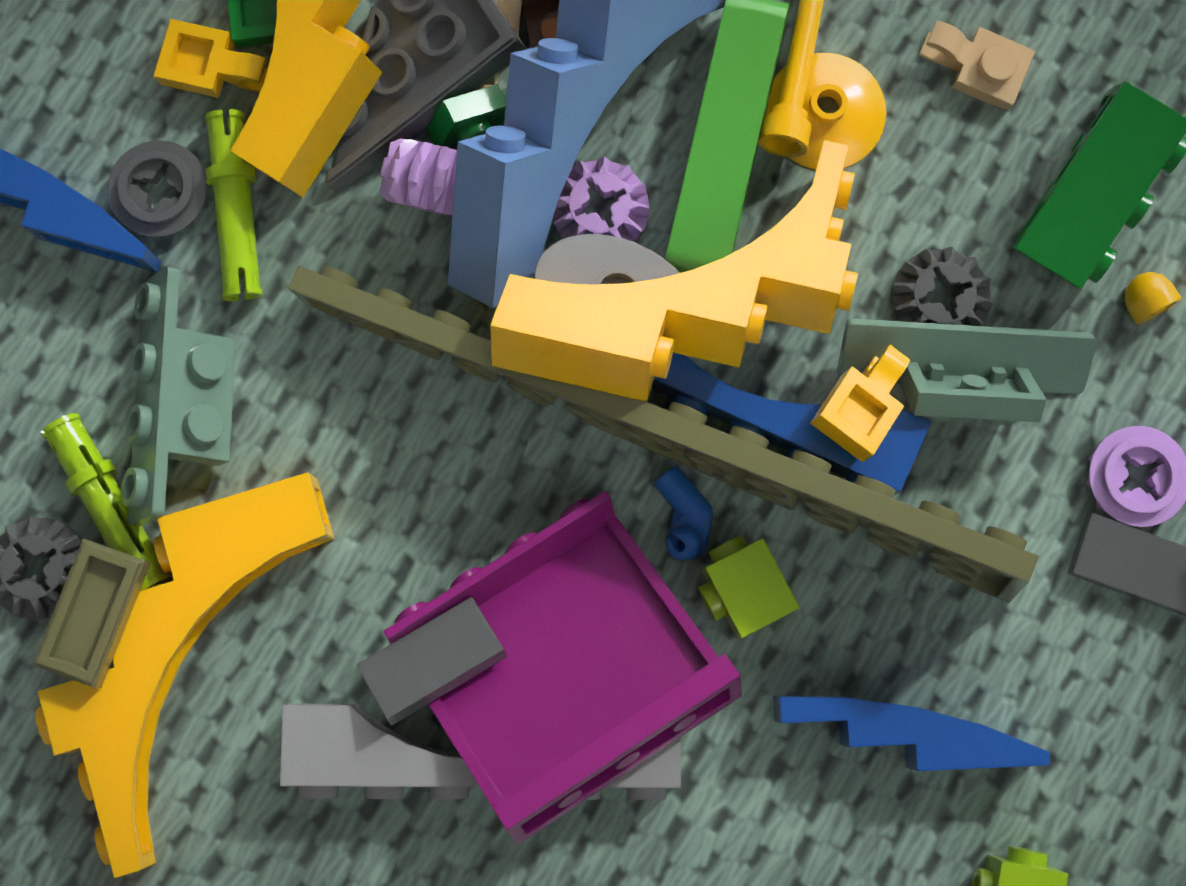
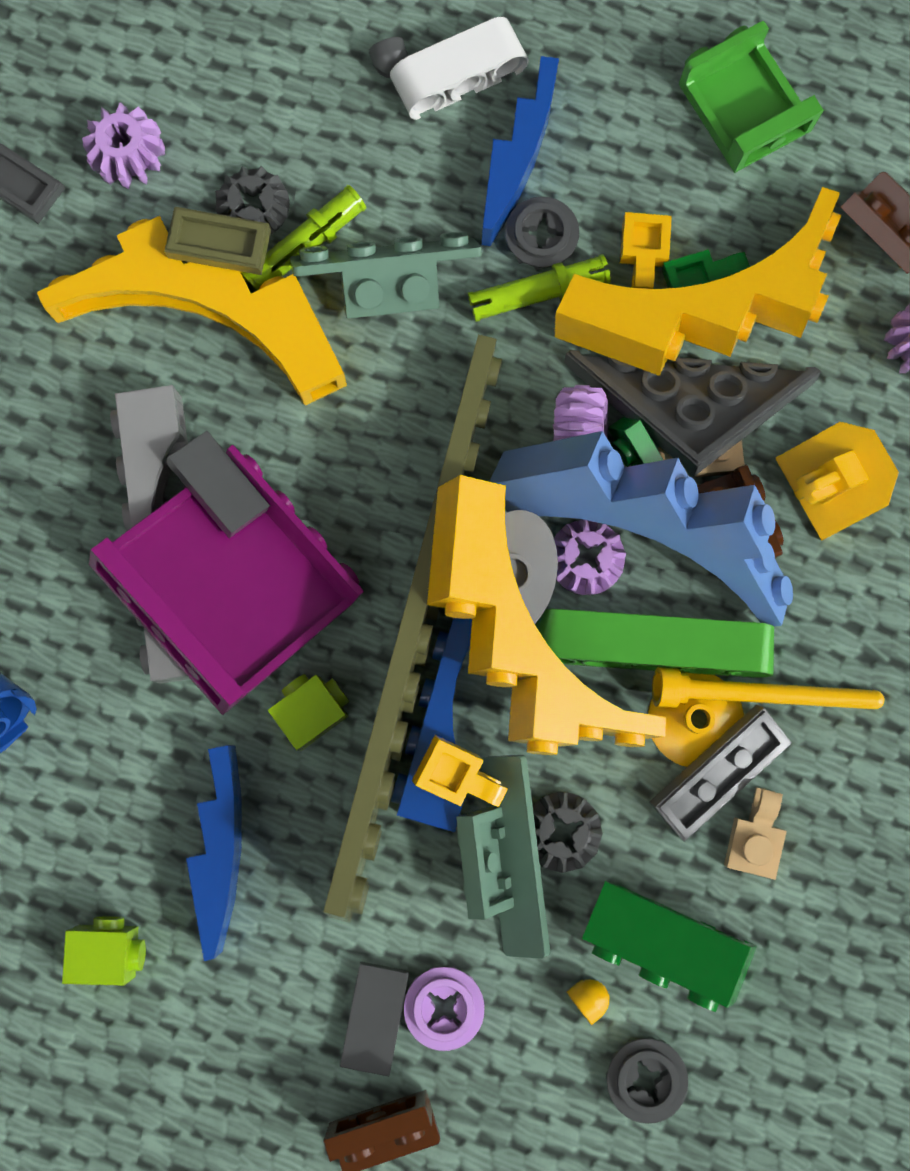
camera: 80 degrees right, 0 degrees up
(690, 518) = (358, 662): blue arm -> none
(896, 92) = (720, 772): none -> tile

